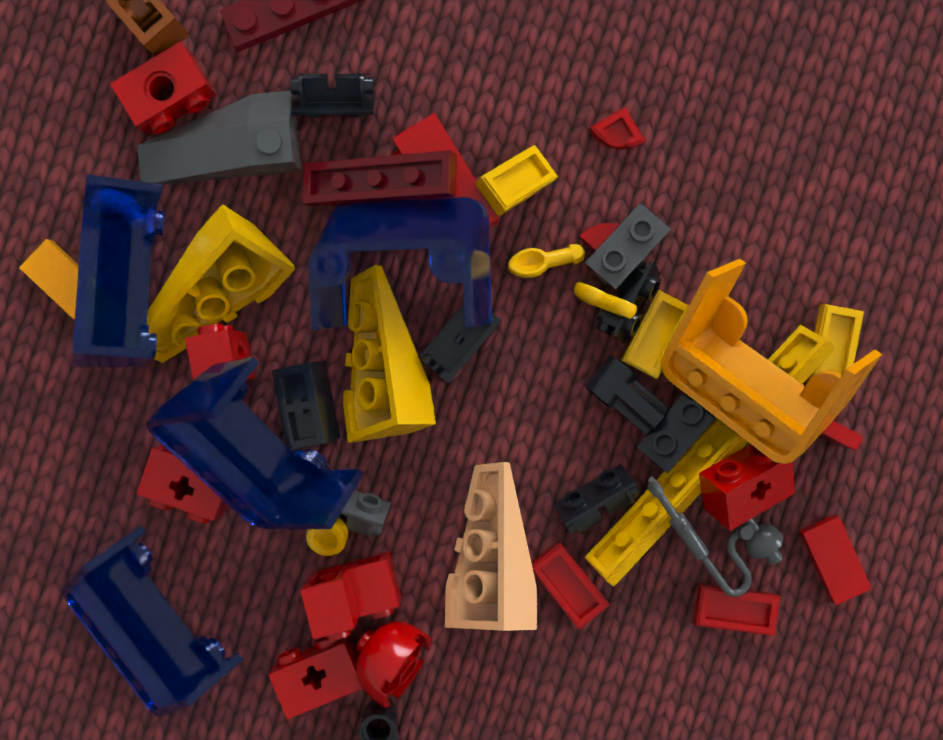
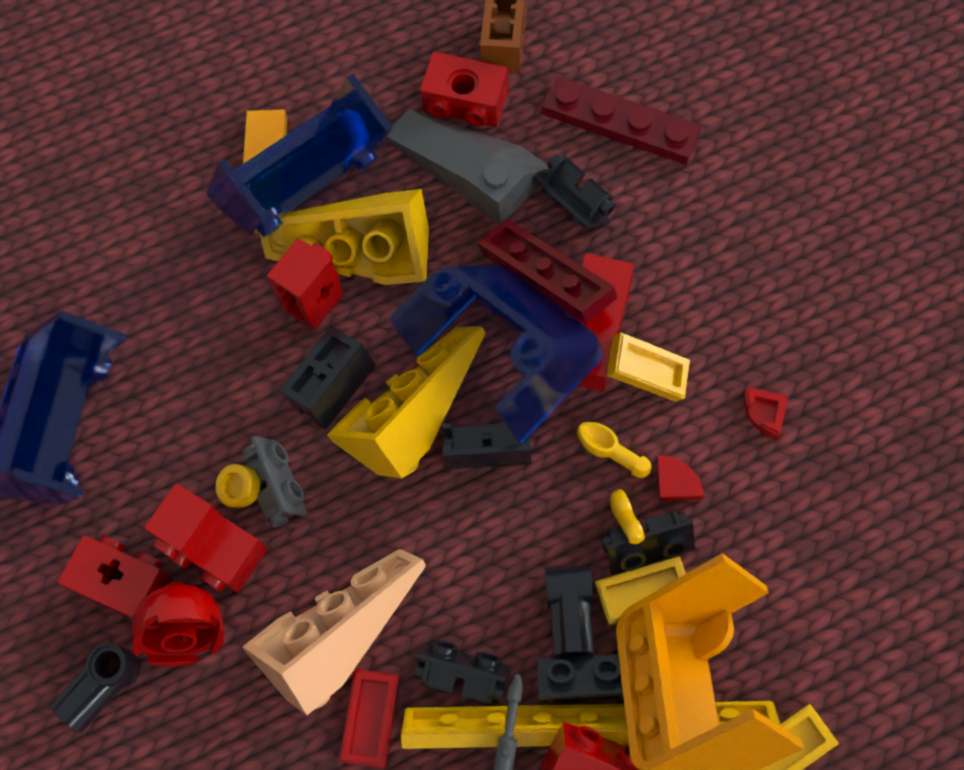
camera: 50 degrees right, 20 degrees down
(164, 488) = (182, 329): red brick -> none
(244, 459) = (244, 353): clear blue windscreen -> none
(627, 246) = (685, 494): dark grey hinge -> none

